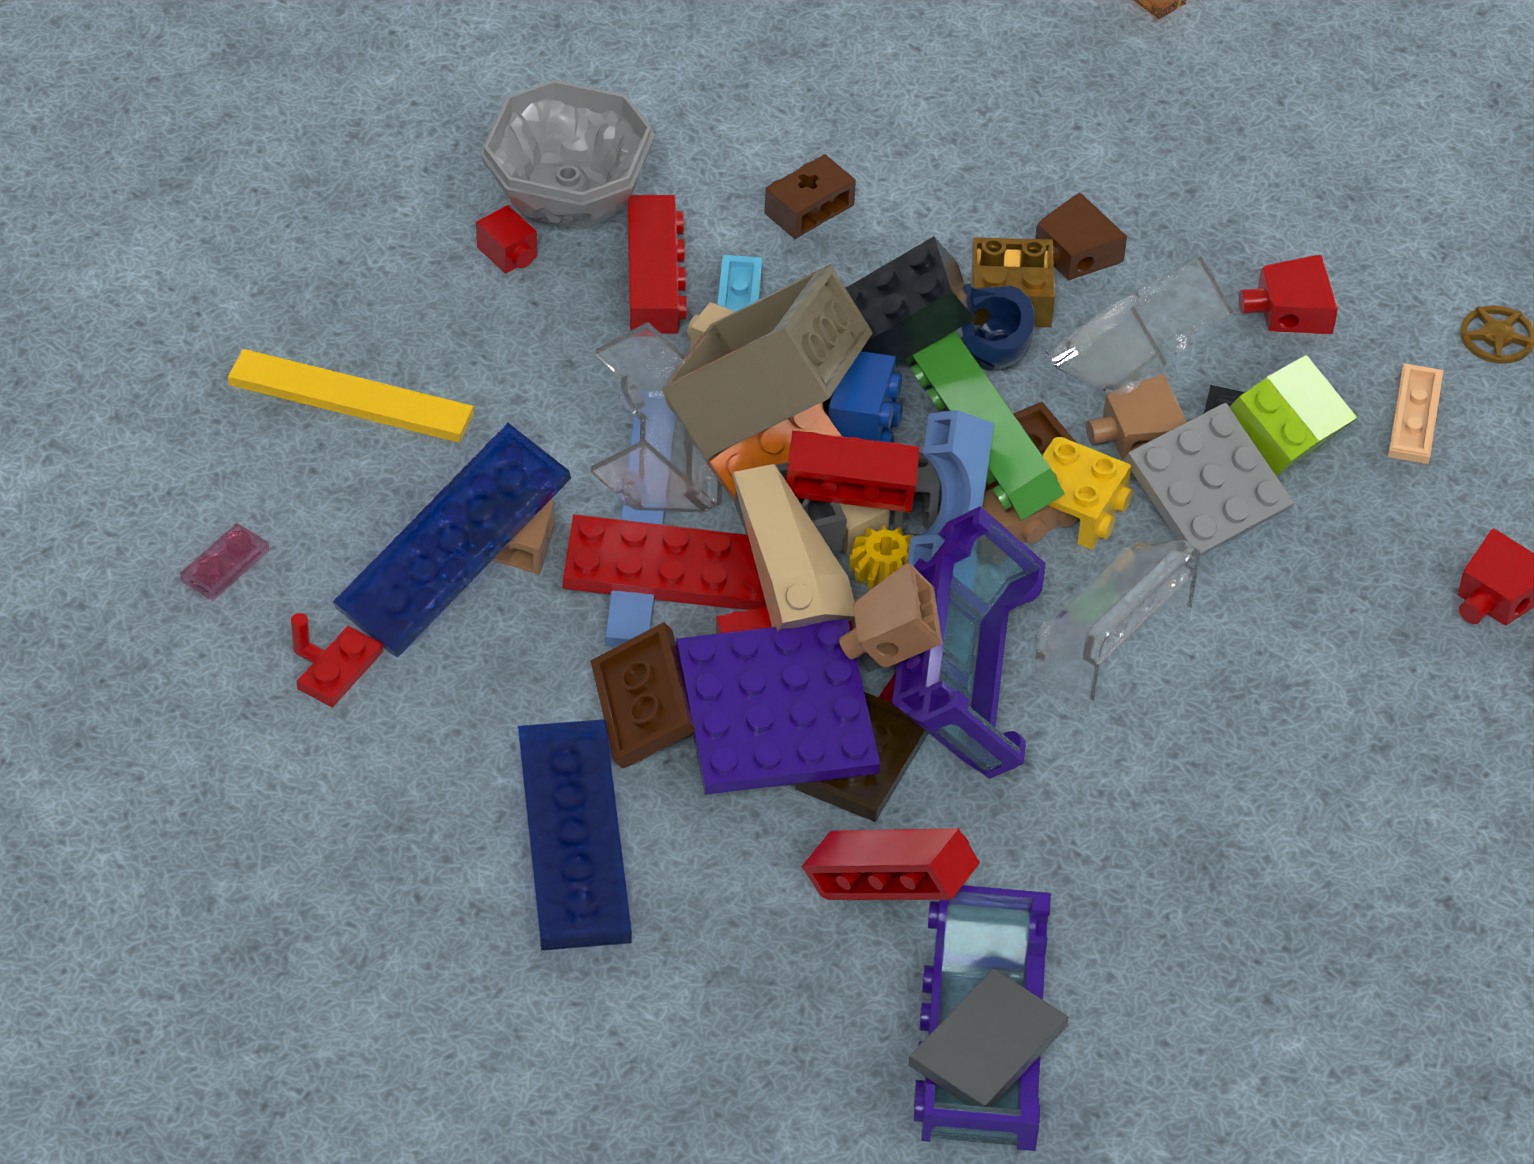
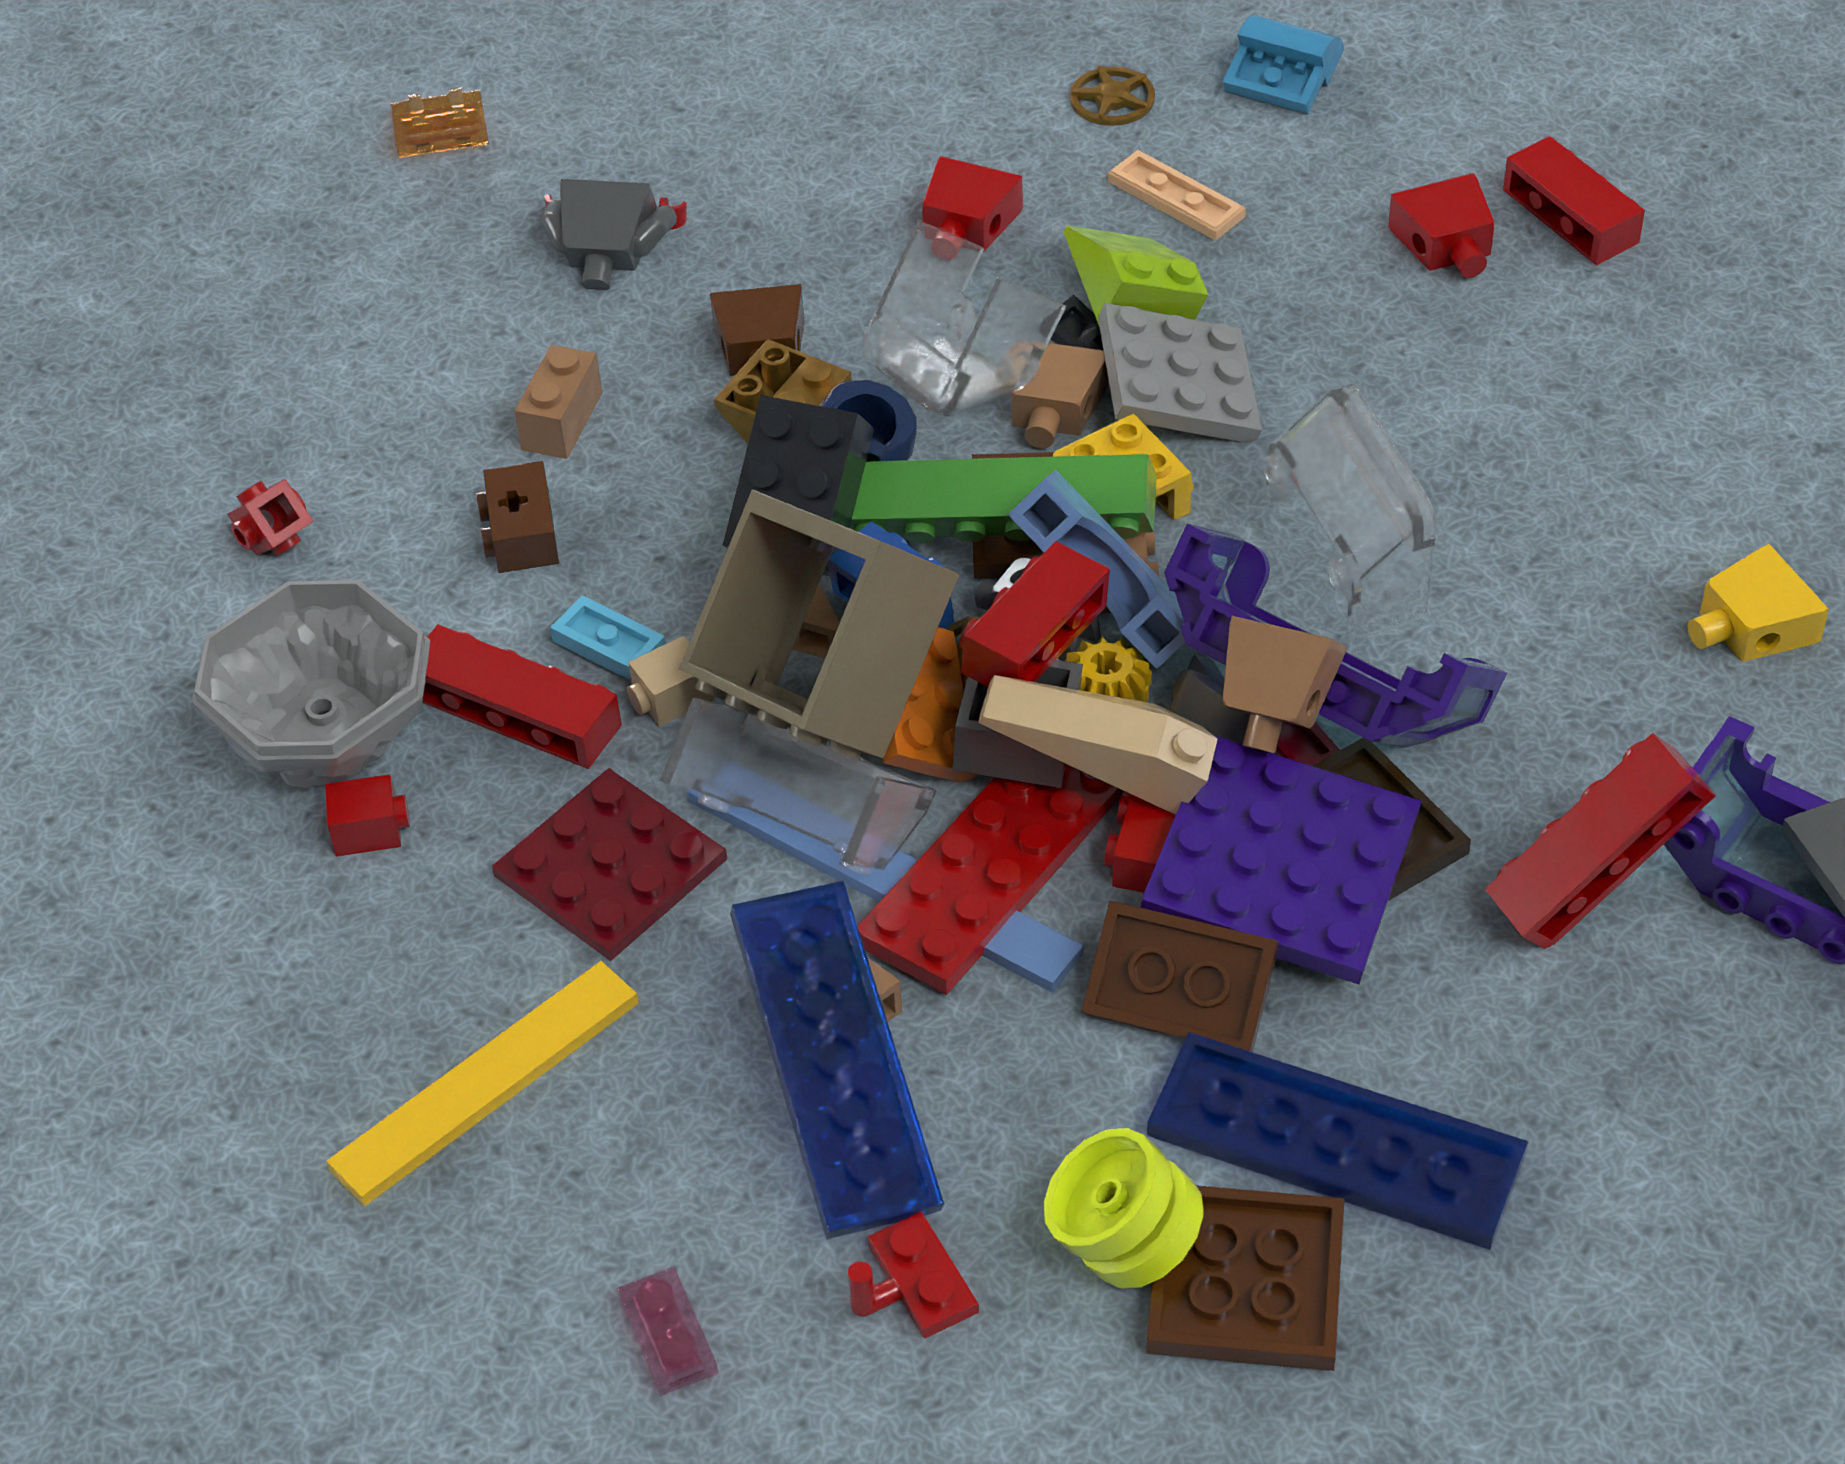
camera: 55 degrees left, 0 degrees up
(427, 729) = (1123, 1208): none -> neon yellow wheel
(435, 826) = (1254, 1282): none -> reddish brown plate
(553, 379) = (609, 863): none -> dark red plate
(700, 68) = (283, 511): none -> red brick
(925, 166) = (558, 401): none -> medium nougat brick
(1112, 115) = (607, 226): none -> dark grey torso
(1225, 905) = (1758, 608): none -> yellow torso

